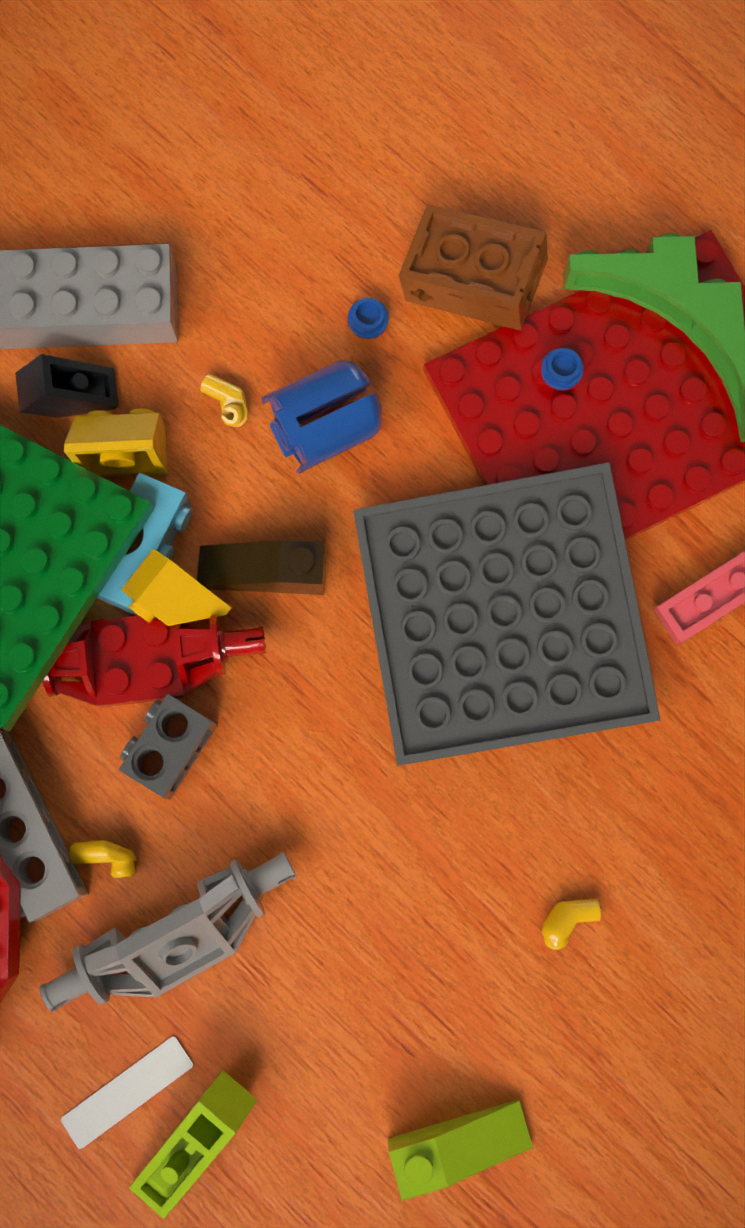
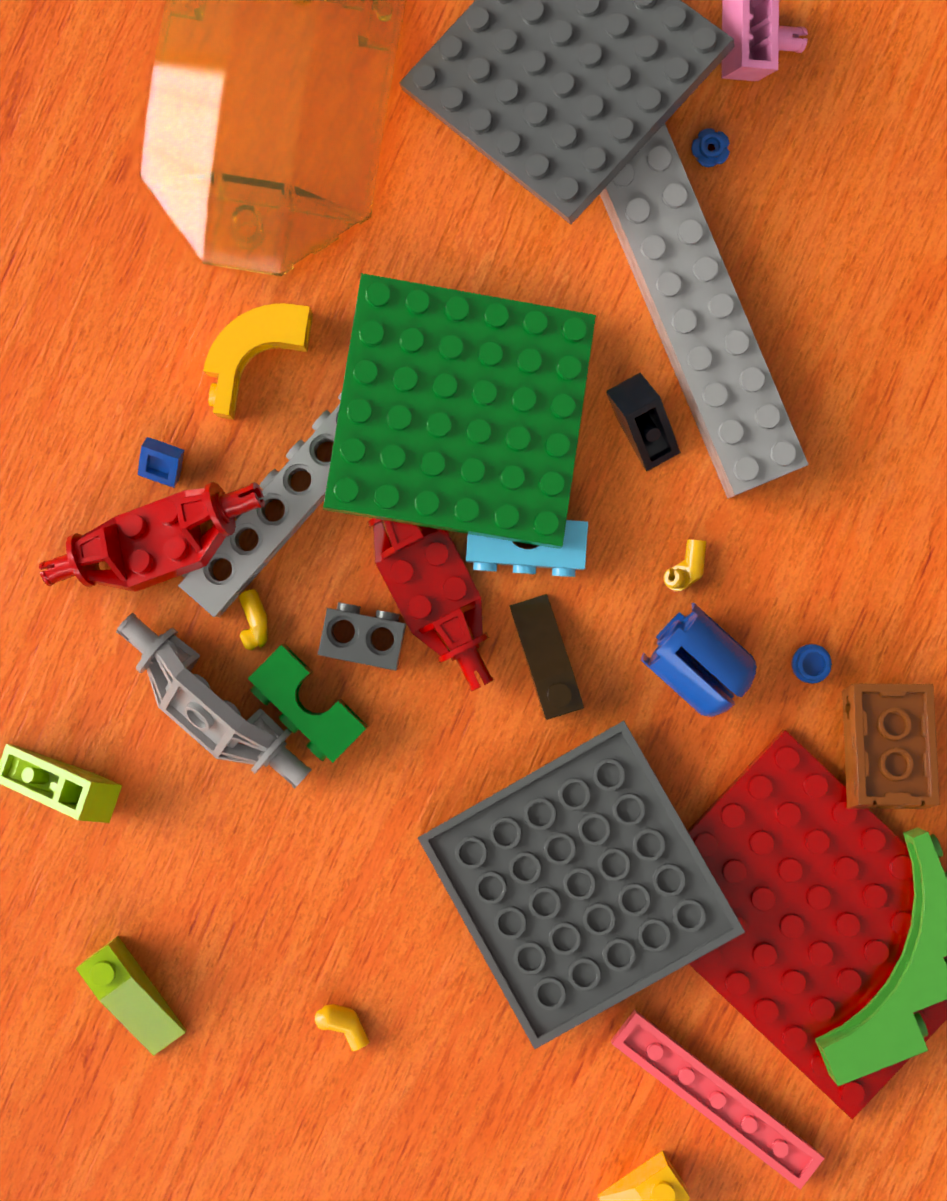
camera: 70 degrees right, 10 degrees up
(118, 443) = (611, 490): yellow slope -> none
(126, 1092) = (77, 712): white sticker -> none
(170, 593) = (490, 592): yellow slope -> none
(178, 851) = (280, 681): none -> green arch
(562, 369) = (822, 858): blue plate -> none

